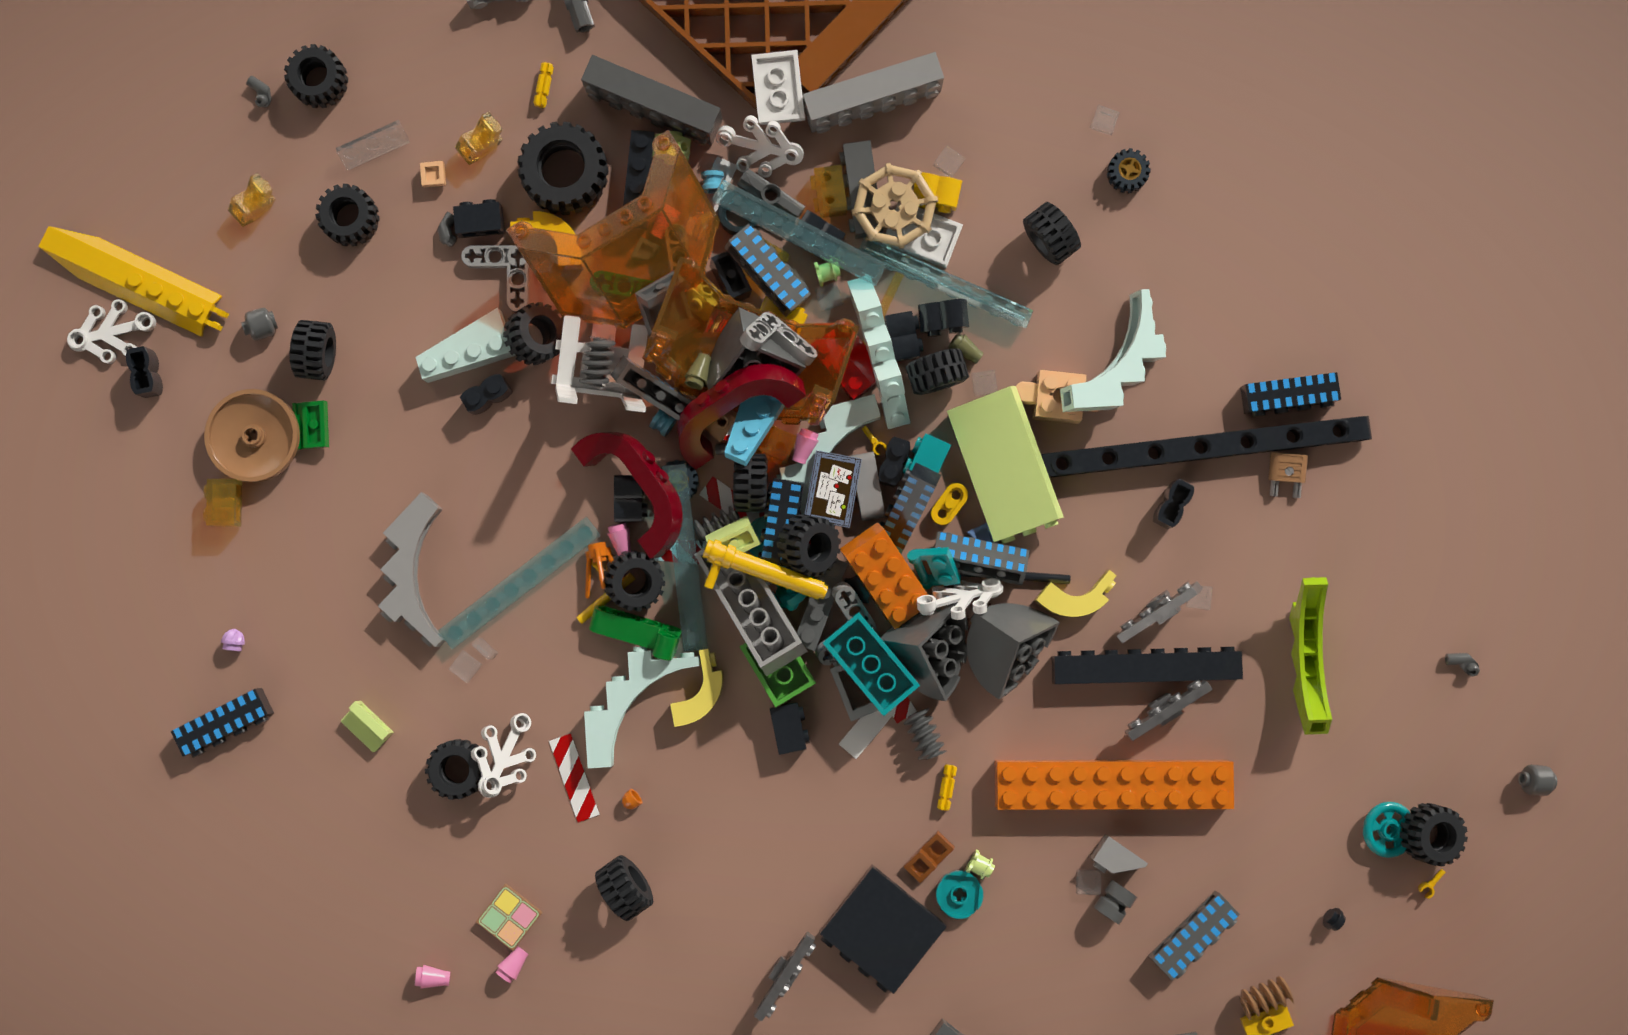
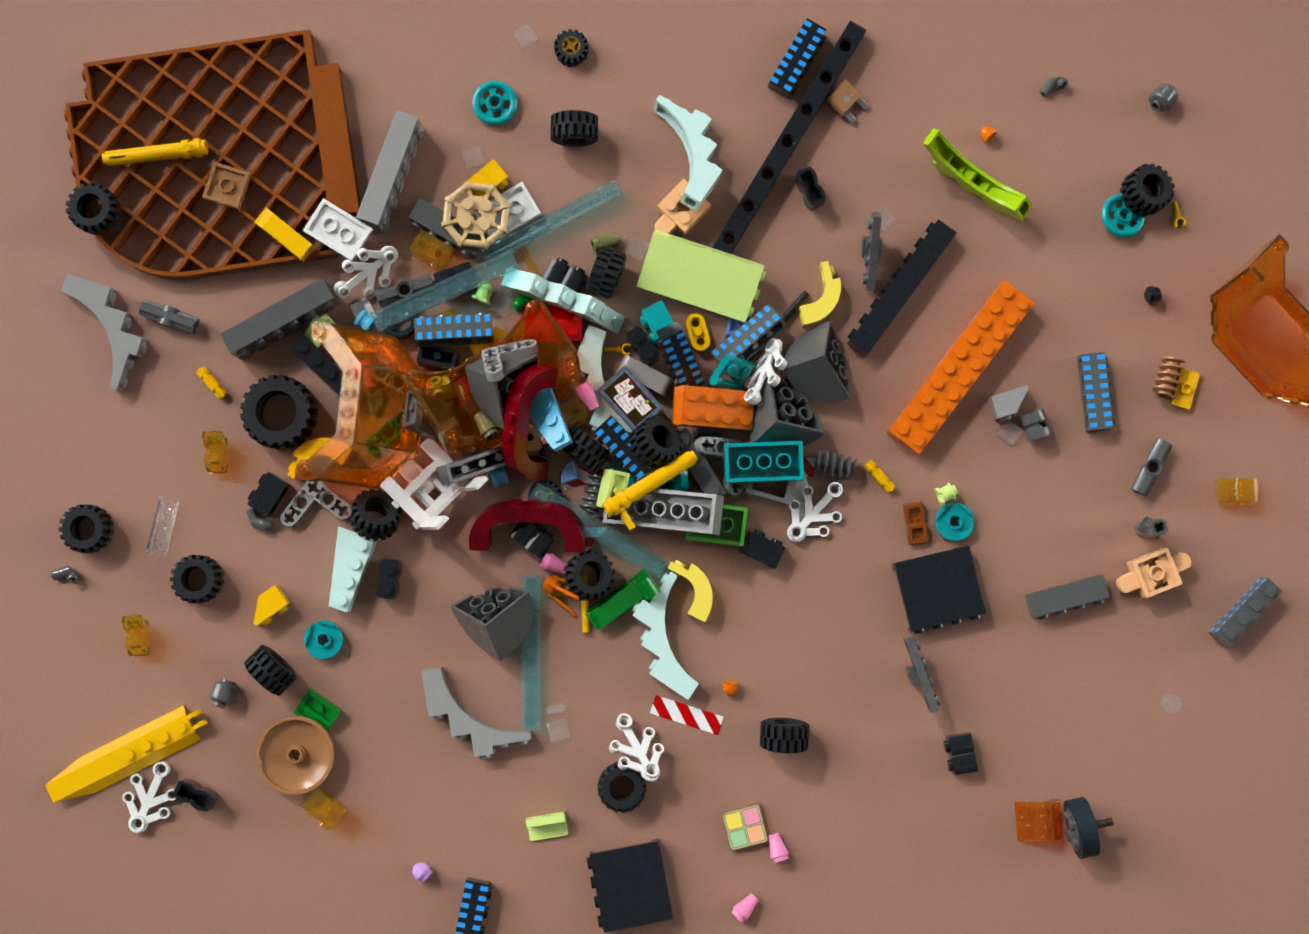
camera: 60 degrees left, 0 degrees up
(368, 850) = (630, 886): none -> black panel
(370, 372) = (317, 630): none -> teal plate
(375, 301) = (269, 604): none -> yellow slope
(433, 174) = (213, 501): light nougat plate -> none
(524, 525) = (496, 619): none -> dark grey brick
(597, 361) = (427, 487): dark grey piece -> none
(719, 486) = (569, 472): none -> medium blue tile
(734, 42) = (284, 234): none -> yellow piece
(846, 312) = (520, 302): none -> green arm
(860, 750) = (812, 514): none -> white plant
(943, 316) = (573, 240): black brick -> none
(1030, 125) = (491, 87): none -> teal plate
(1167, 708) = (938, 295): flat silver plate -> none
(1364, 634) = (987, 133): none -> orange hinge

